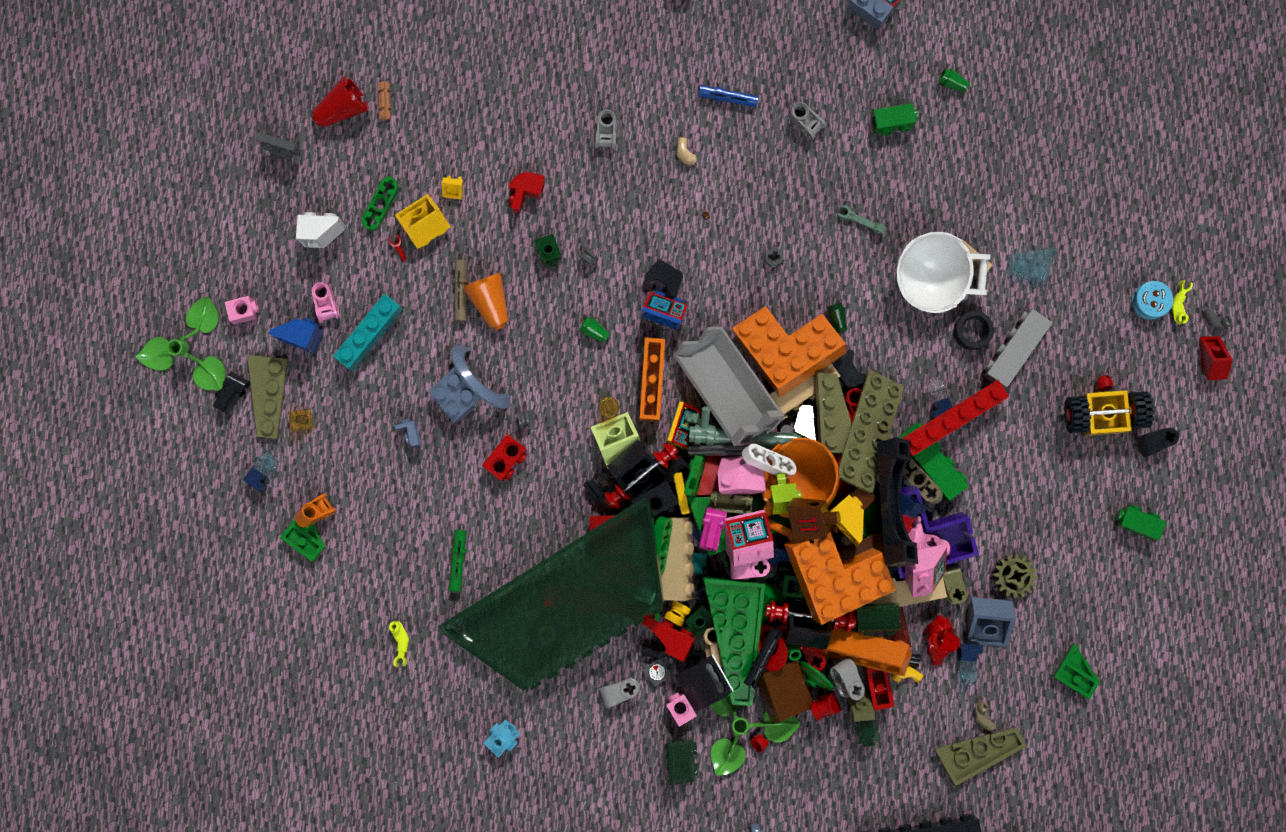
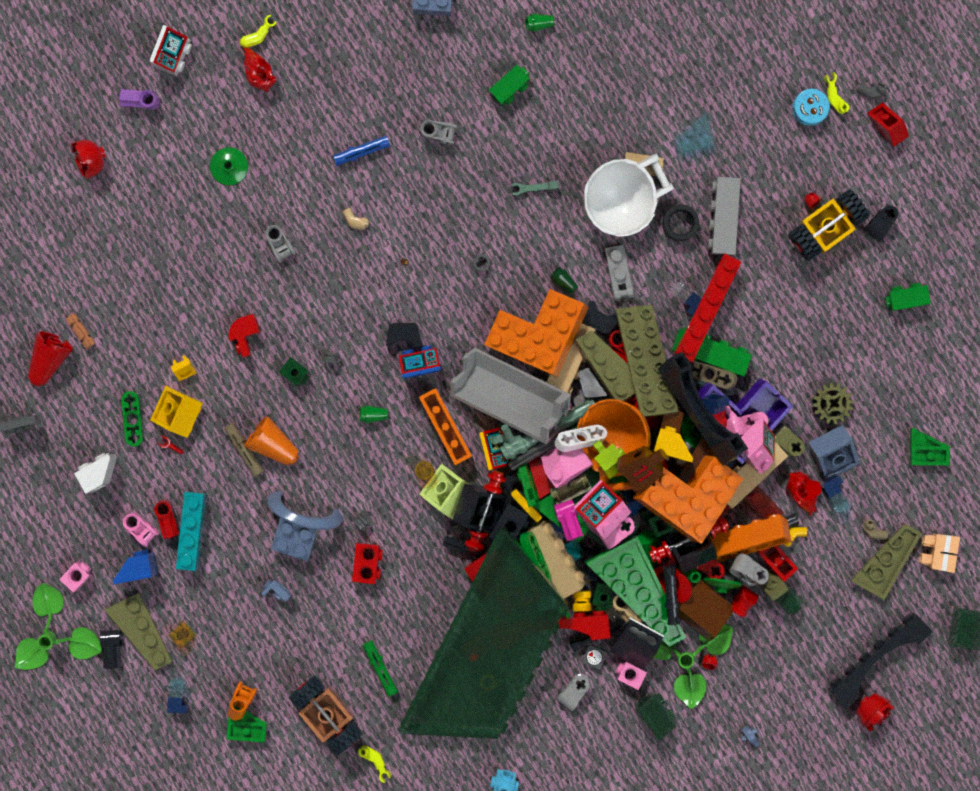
camera: 35 degrees left, 5 degrees up
(353, 312) = (167, 521): none -> red piece
(382, 570) = (326, 715): none -> brick
(603, 49) = (235, 173): none -> green dish
(878, 618) = (744, 507): clear green brick -> none
(891, 340) = (619, 272): none -> light grey plate
(1027, 780) = (938, 544): none -> light nougat hips

